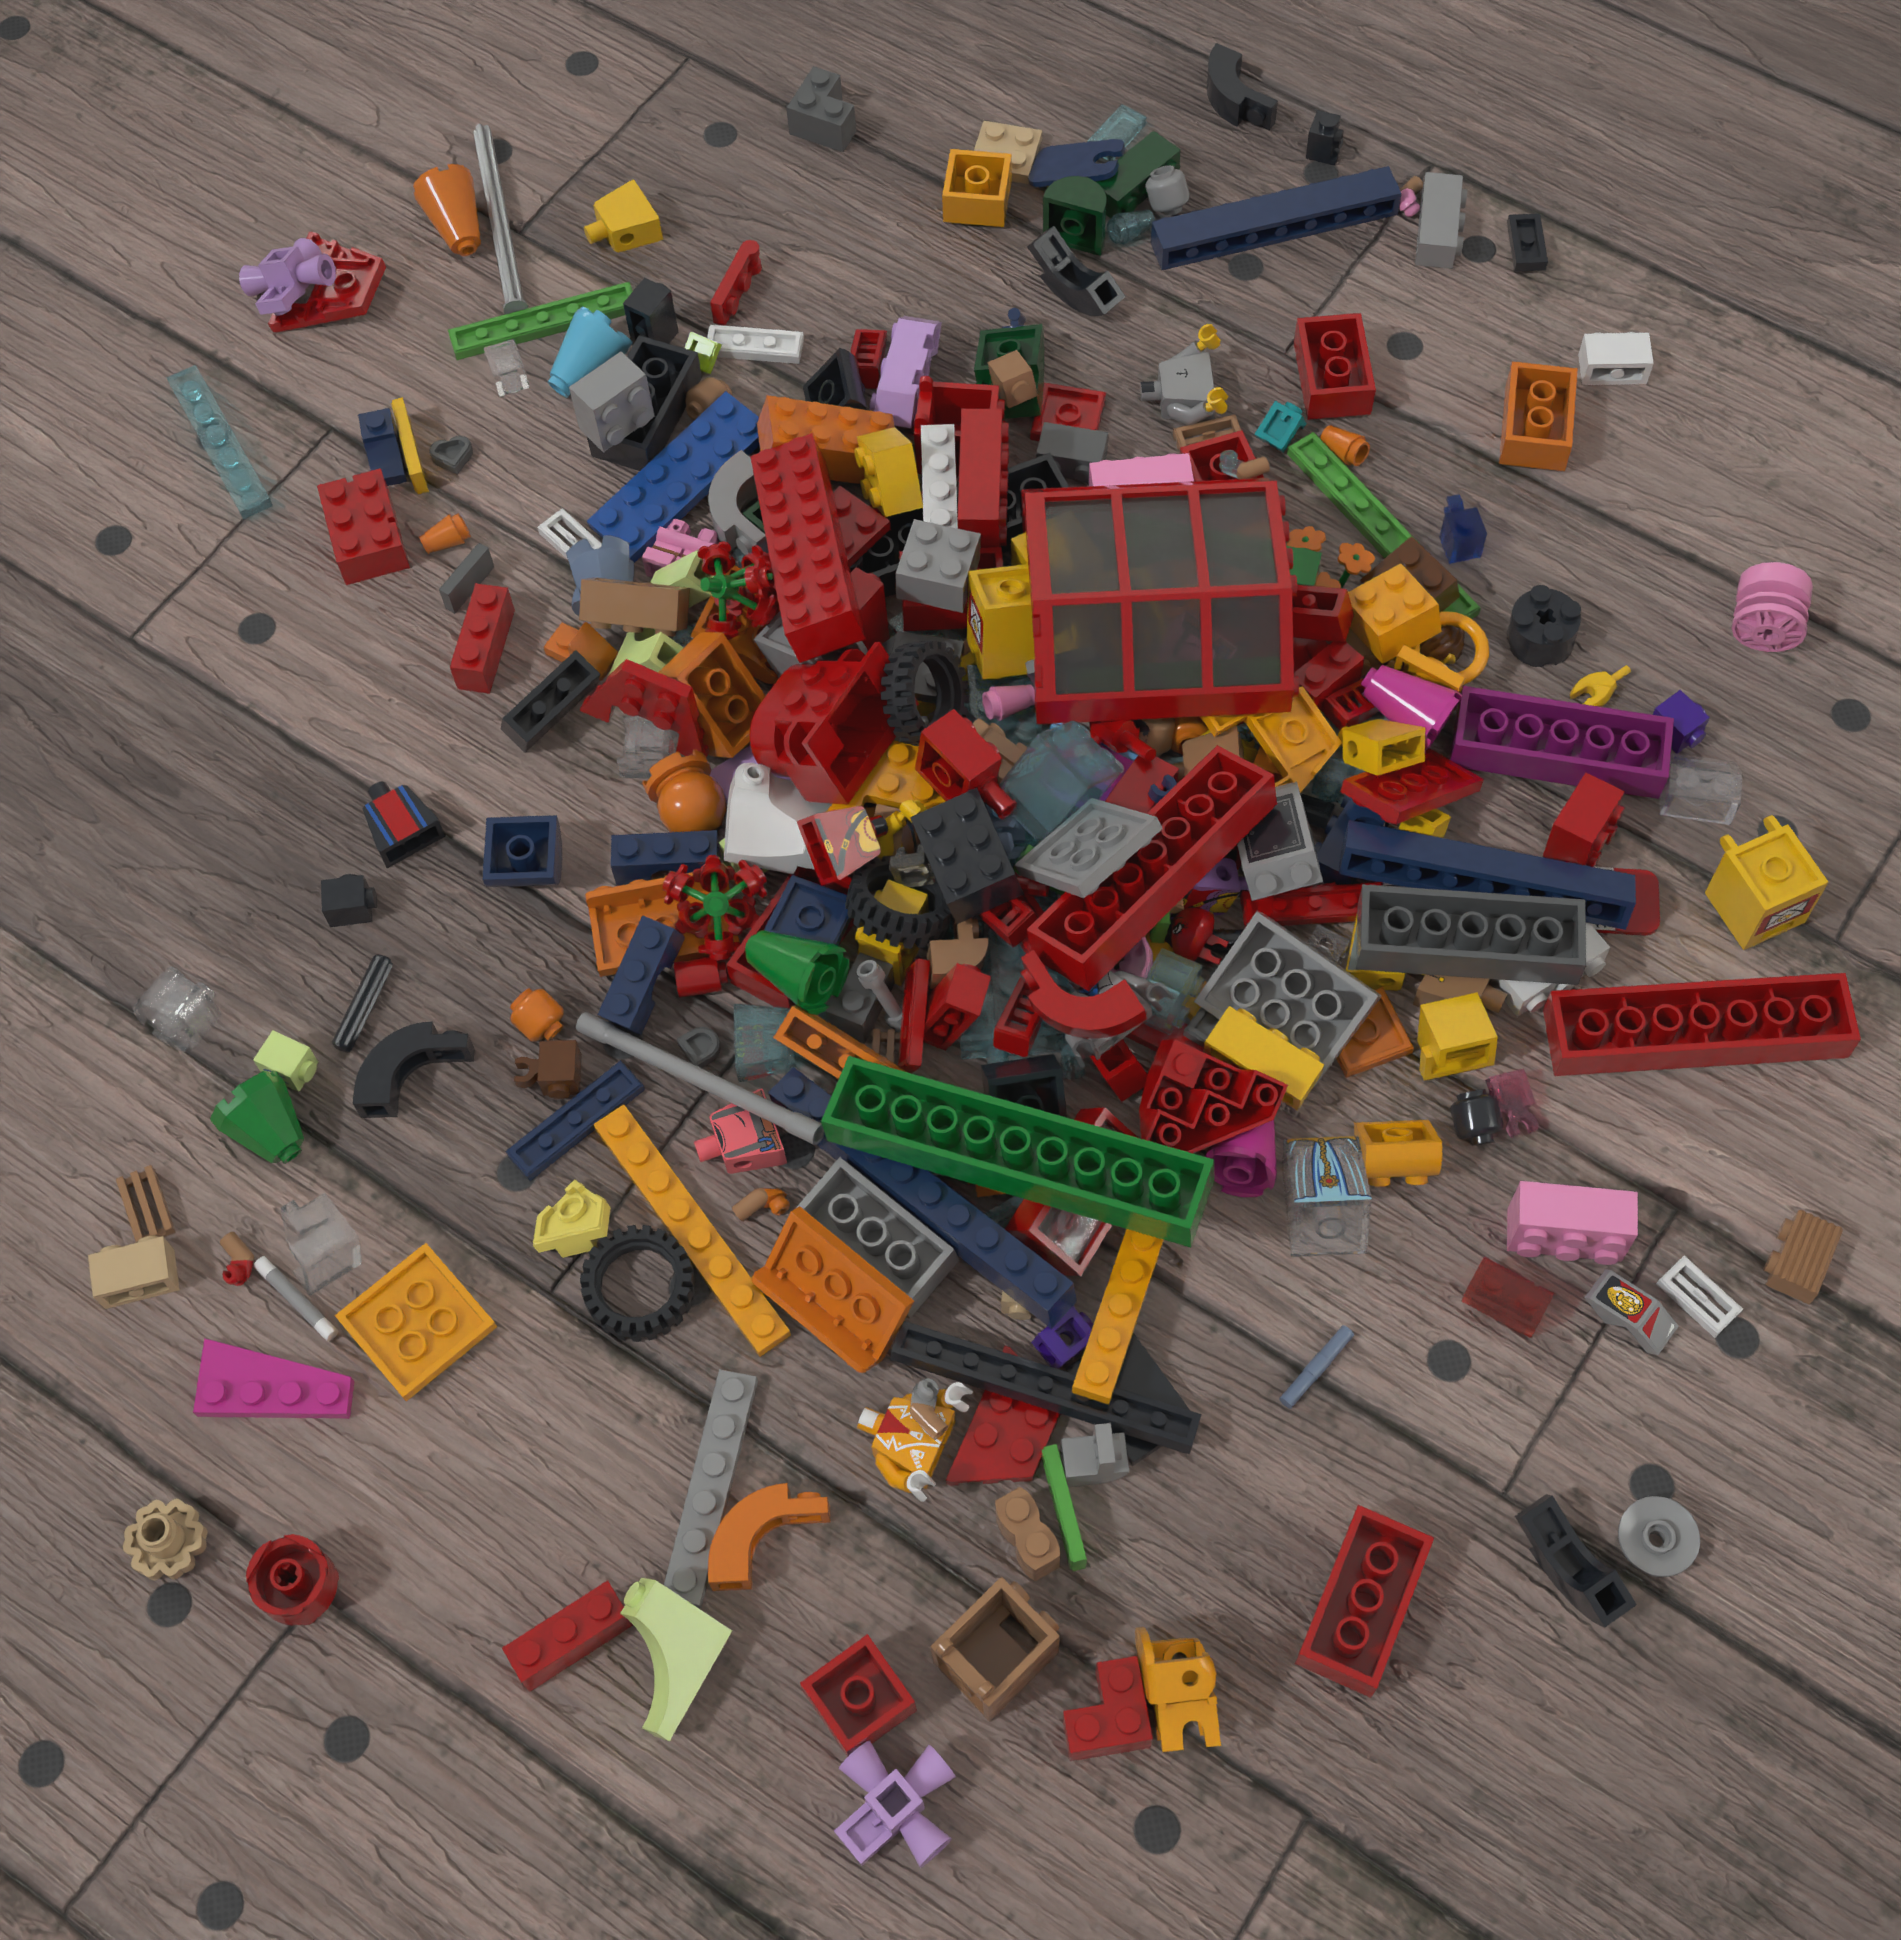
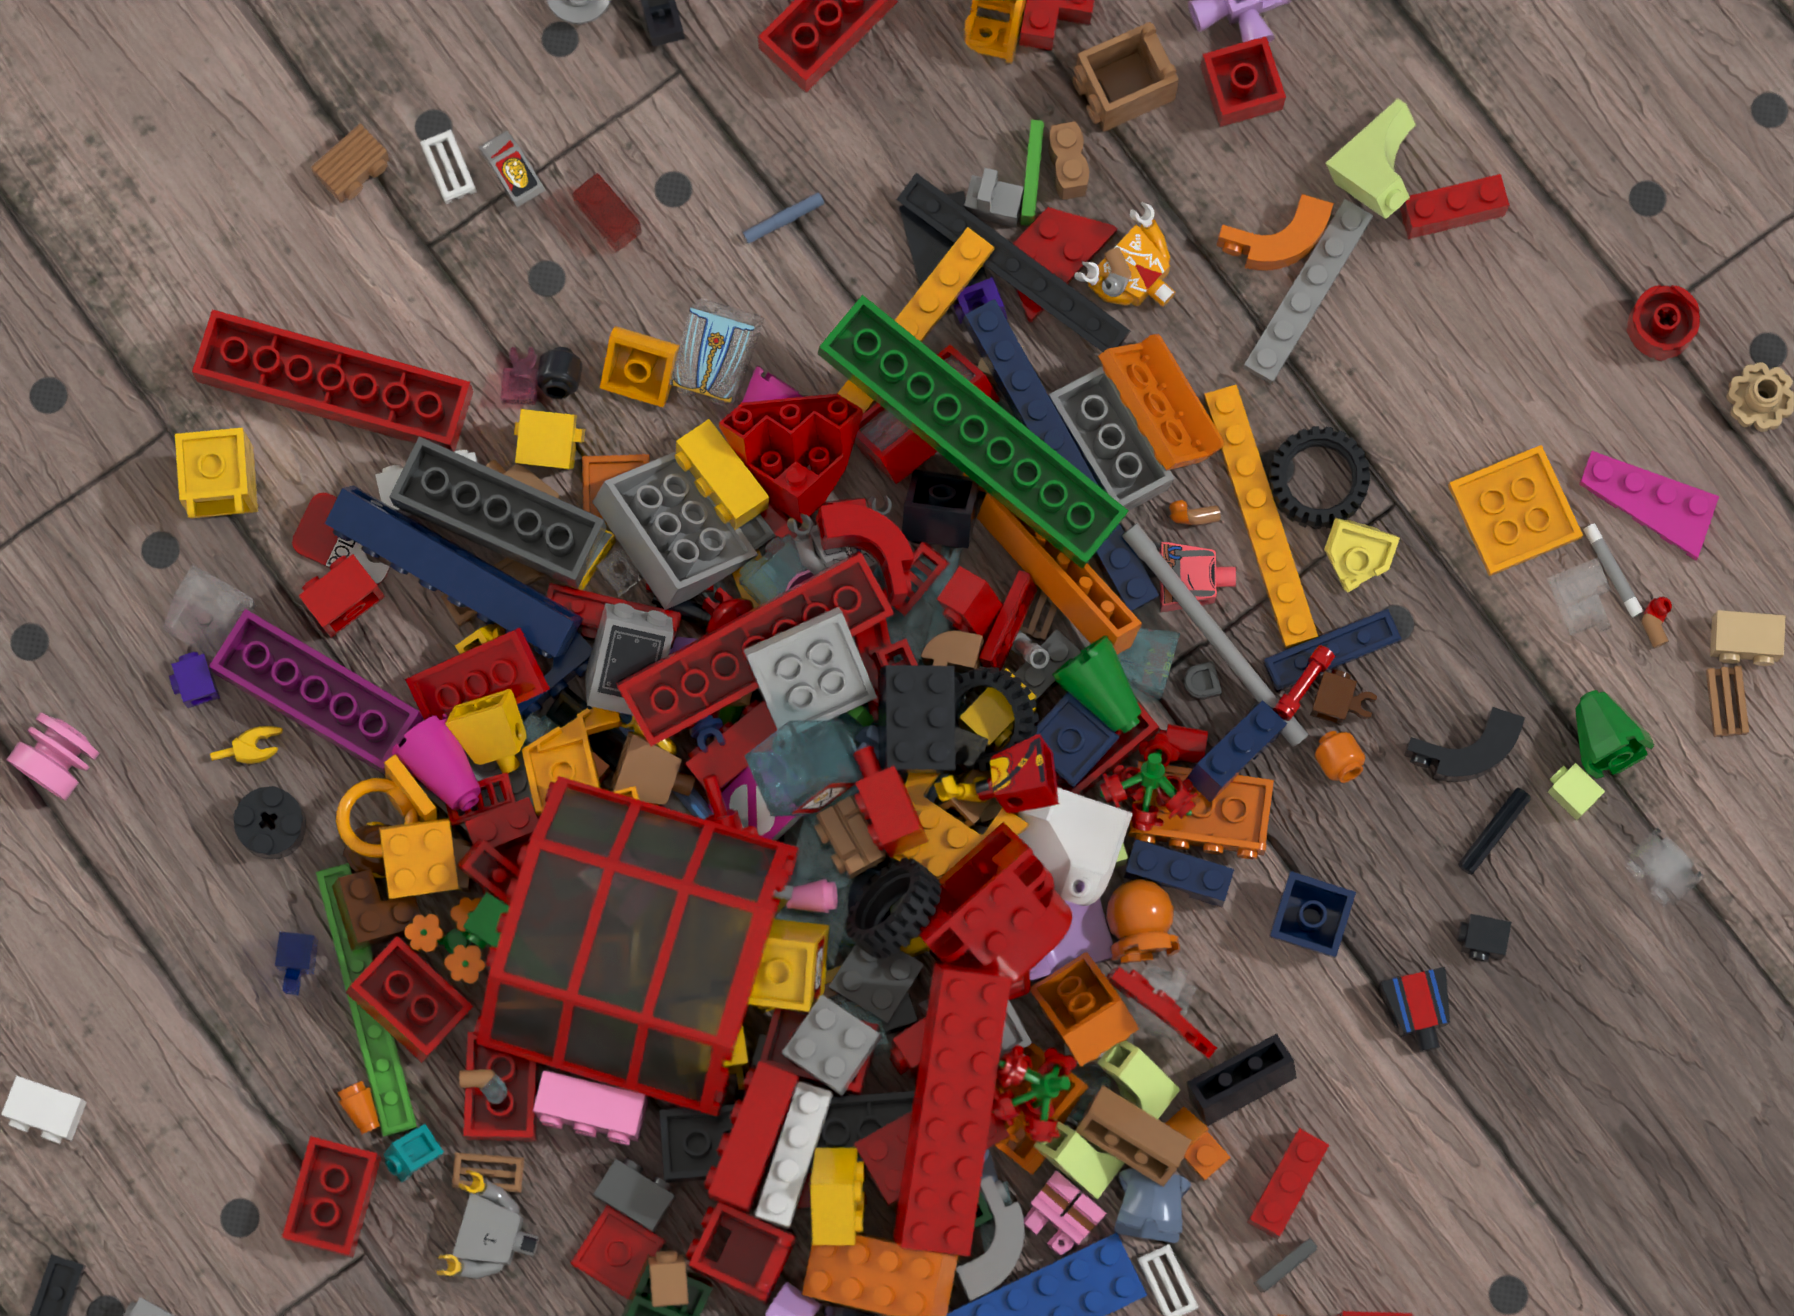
camera: 165 degrees left, 15 degrees up
(582, 1093) = (1319, 662): none -> red bar
(1346, 515) = (409, 999): none -> red brick
(1538, 416) = (158, 1059): orange brick -> none
(1572, 1222) = (528, 247): bright pink brick -> none

